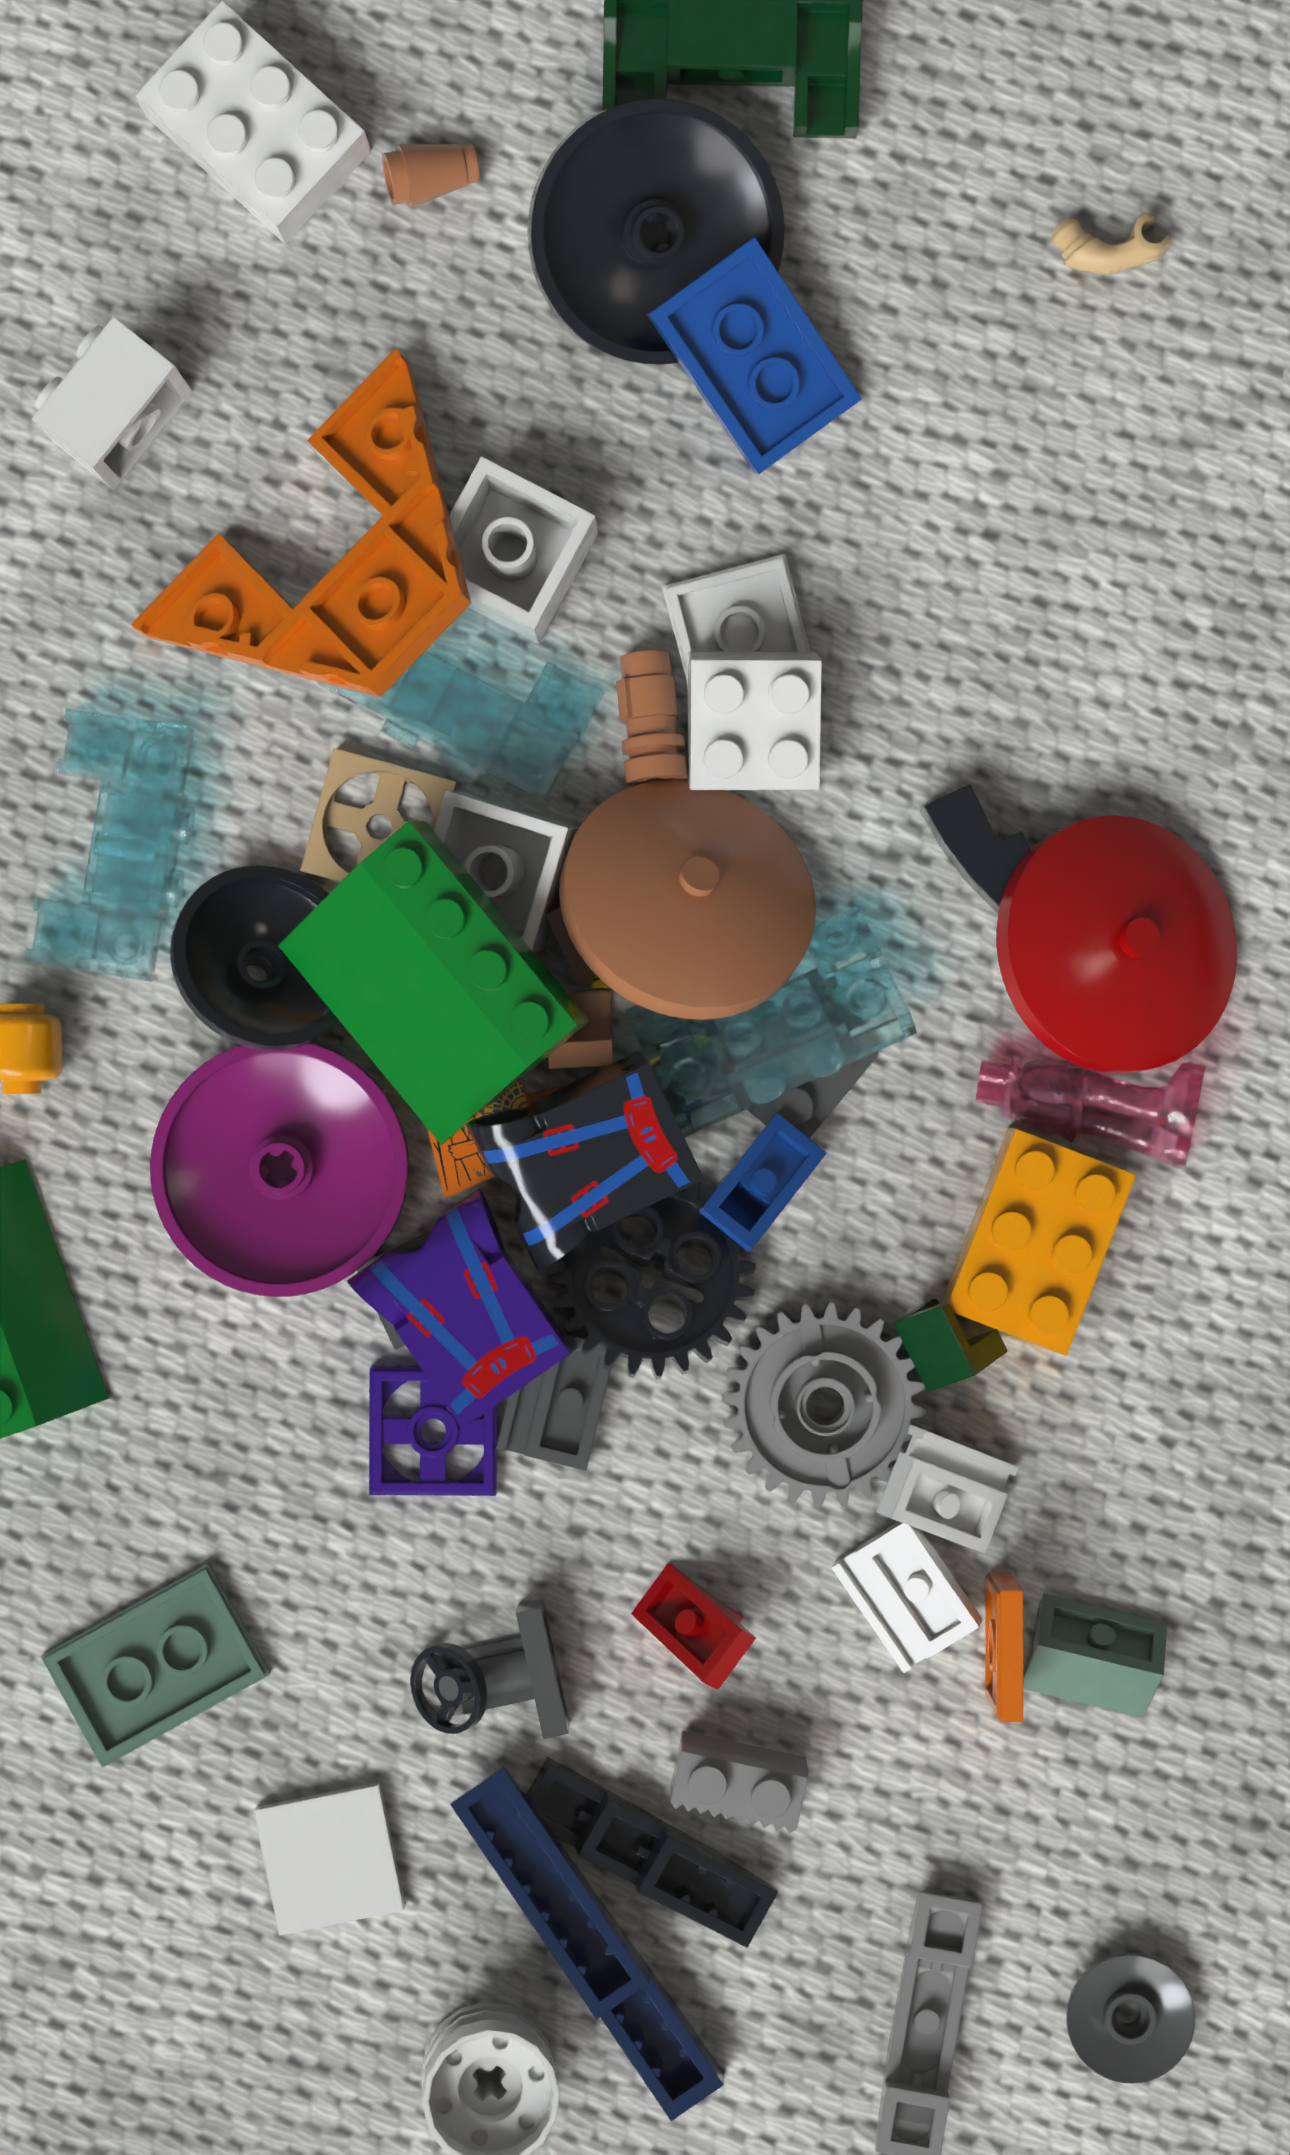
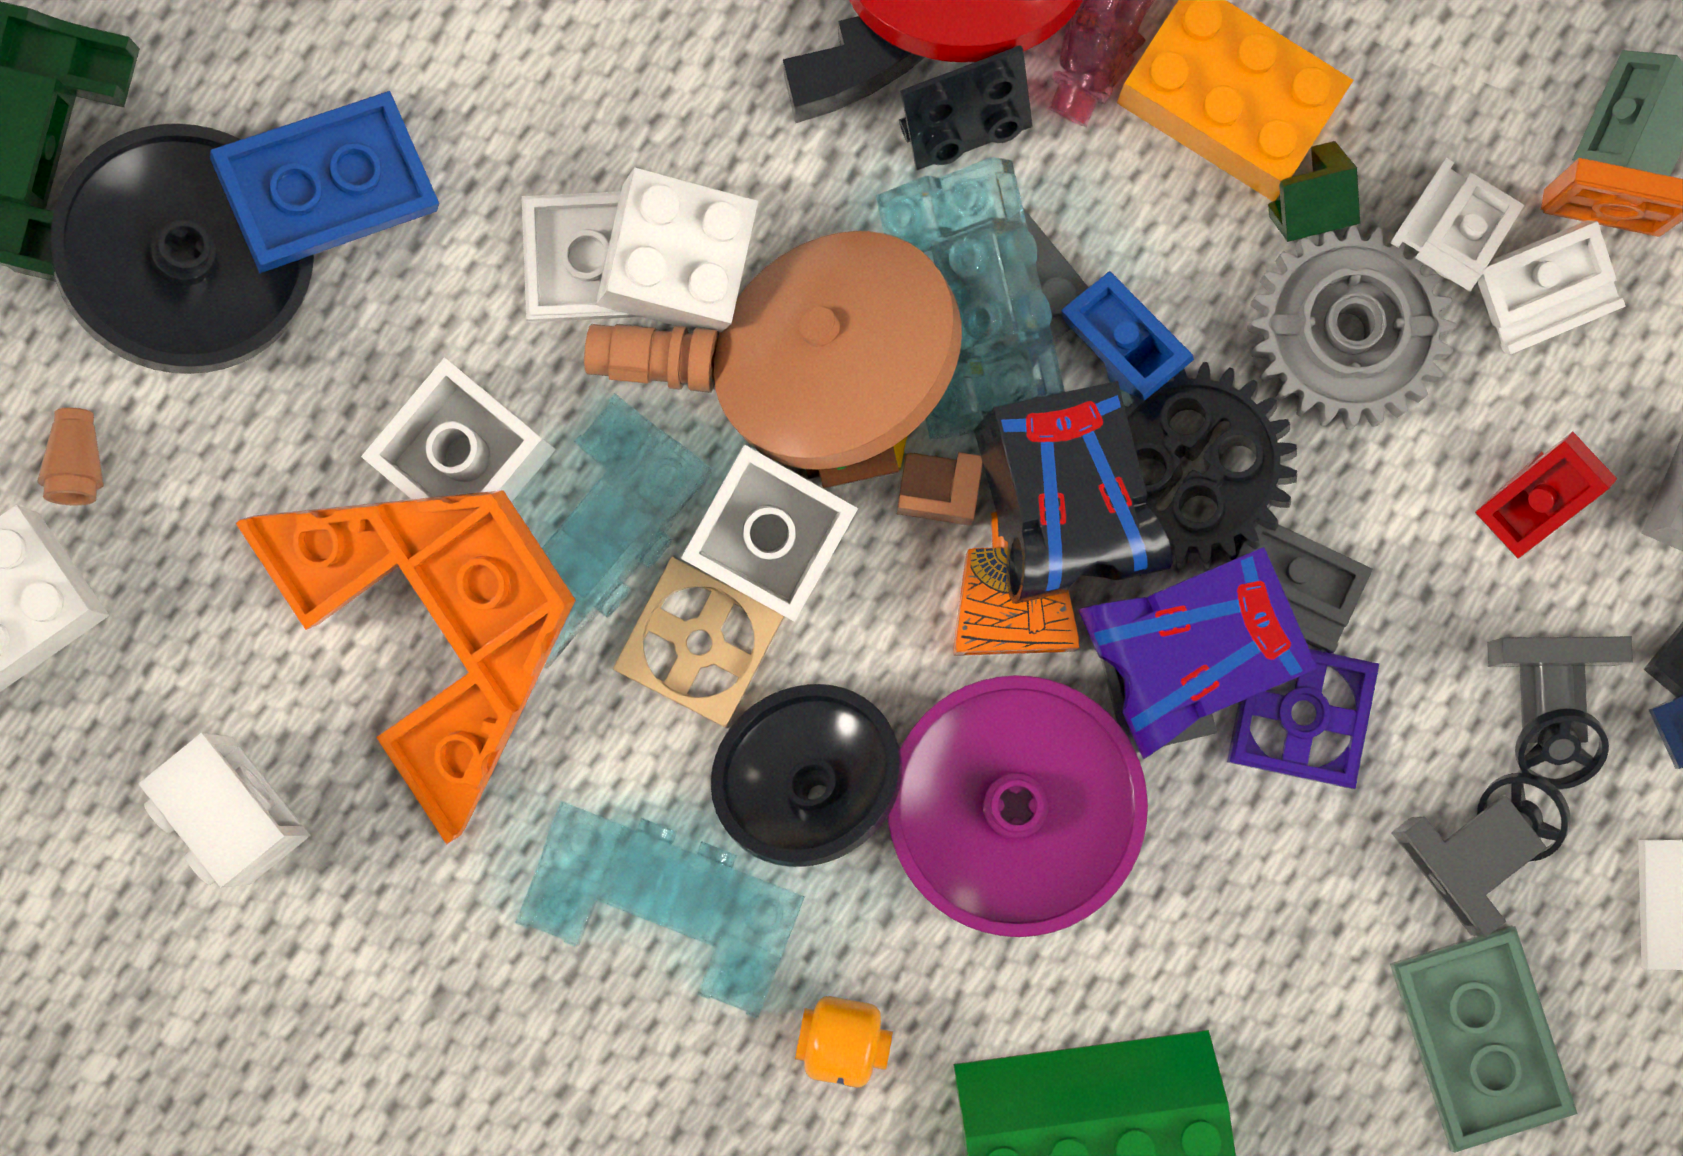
camera: 80 degrees left, 5 degrees down
(337, 1633) = (1485, 849): none -> dark grey piece
(432, 980) = (867, 610): green slope -> none
(958, 978) = (967, 108): none -> black hinge

